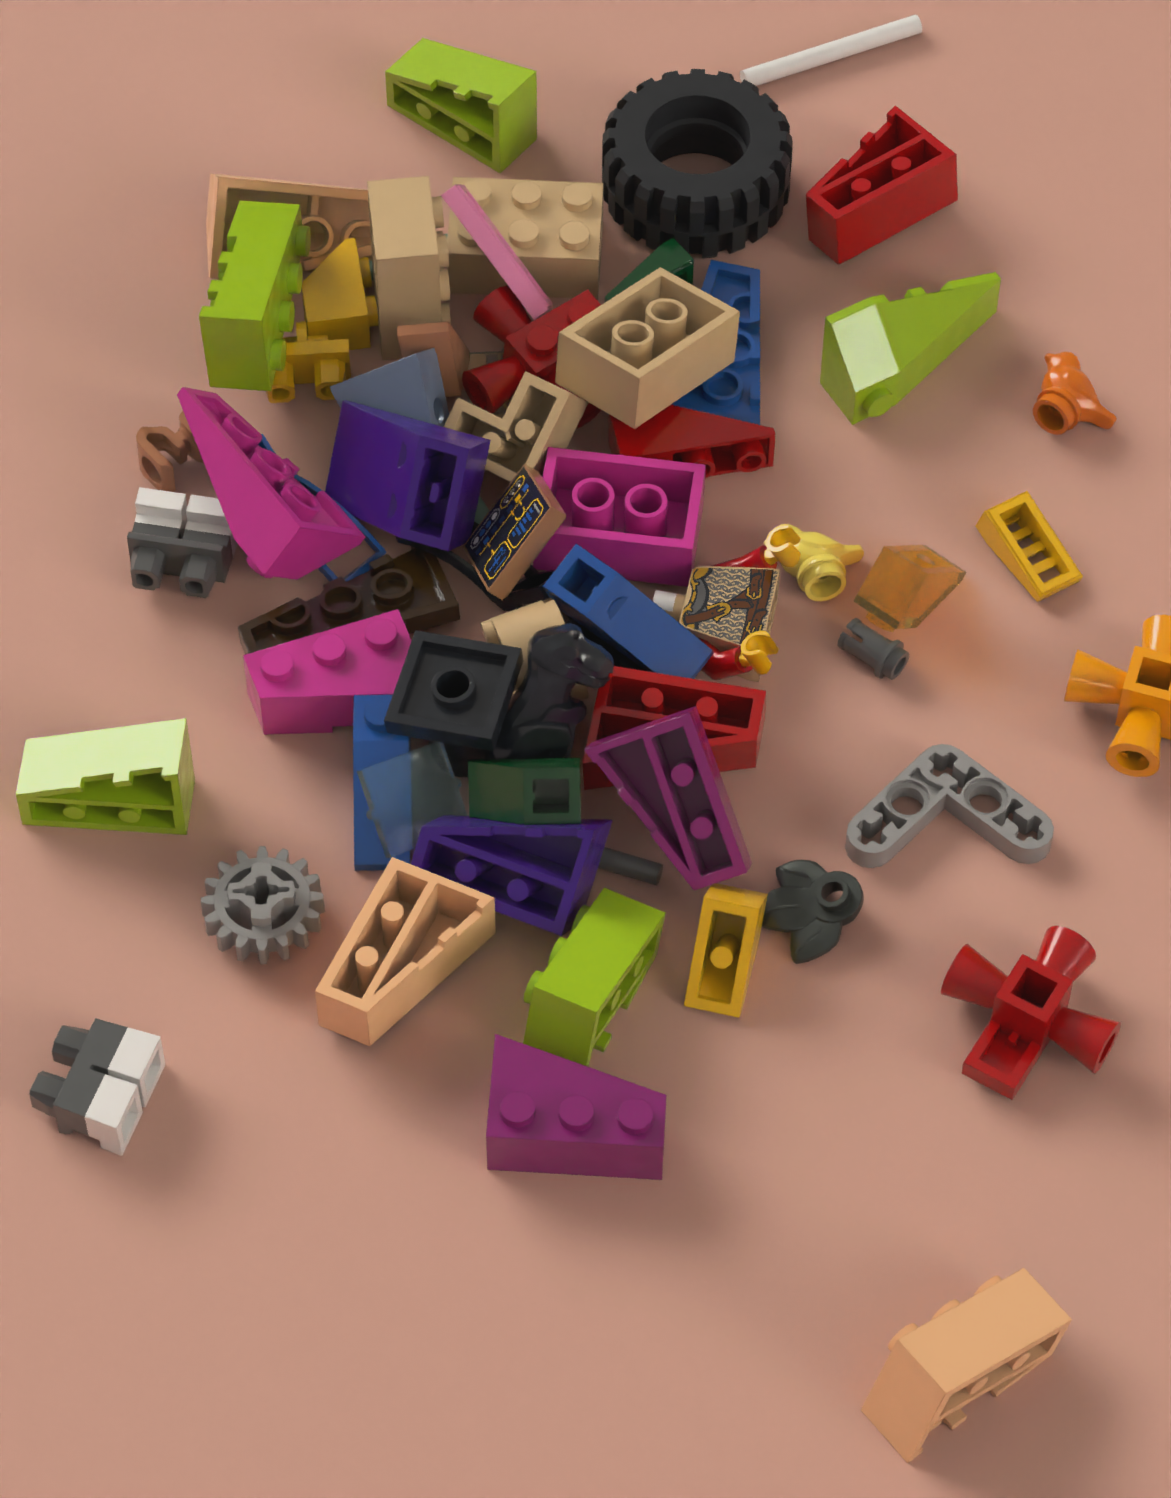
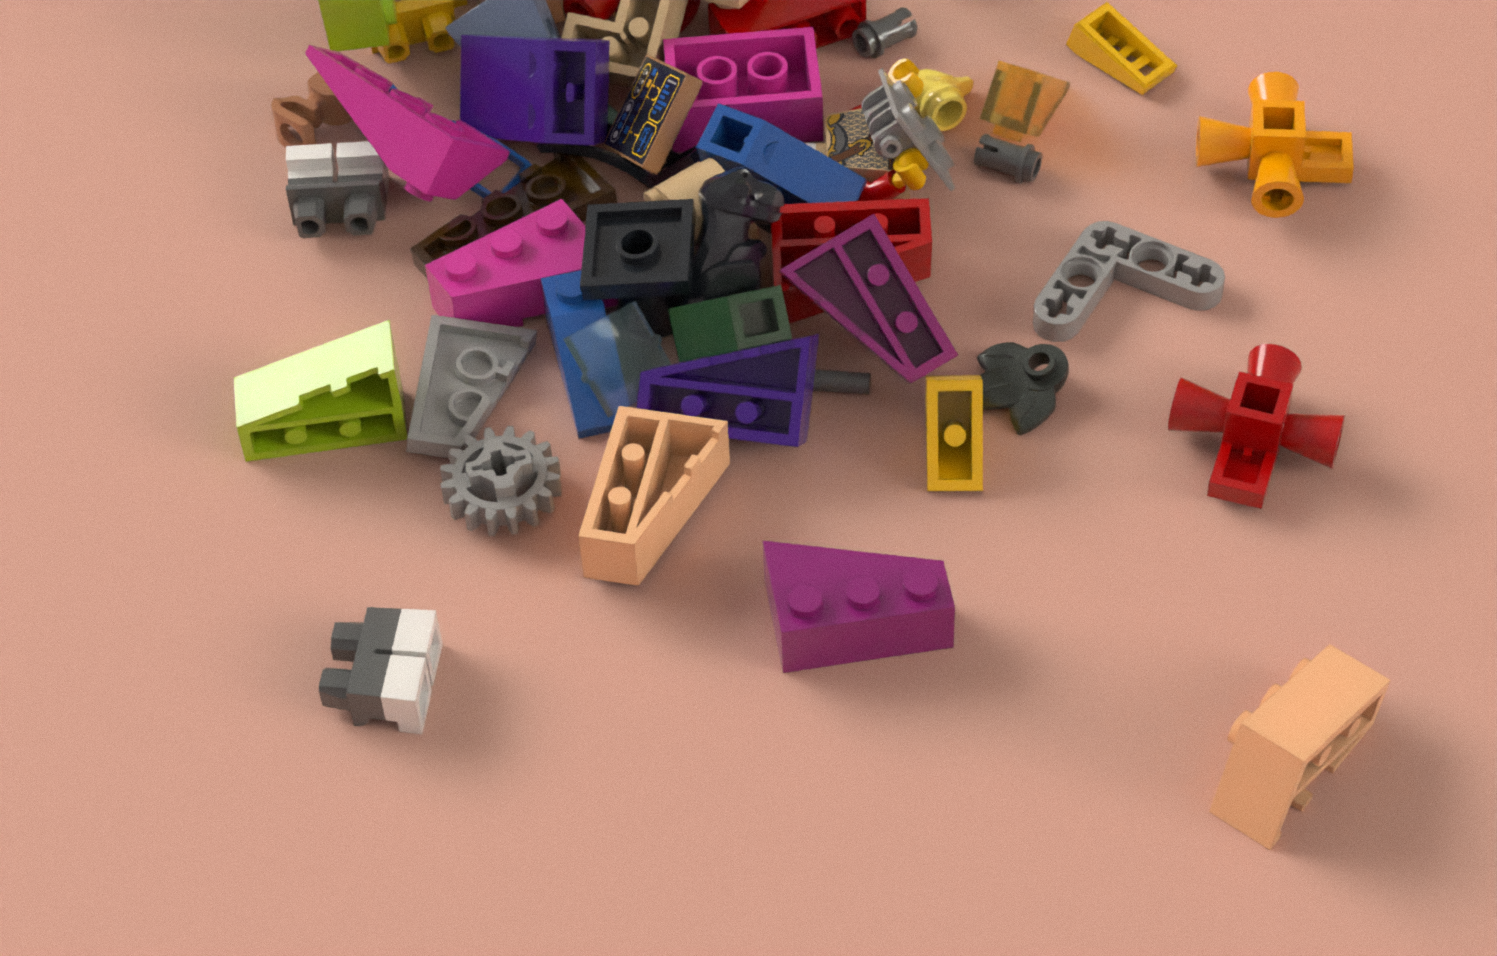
camera: 10 degrees left, 5 degrees down
(253, 785) = (462, 380): none -> light grey wing
(591, 976) = (837, 474): lime wedge -> none
(765, 599) = (898, 126): none -> light grey hinge
(782, 476) = (875, 36): none -> dark grey pin

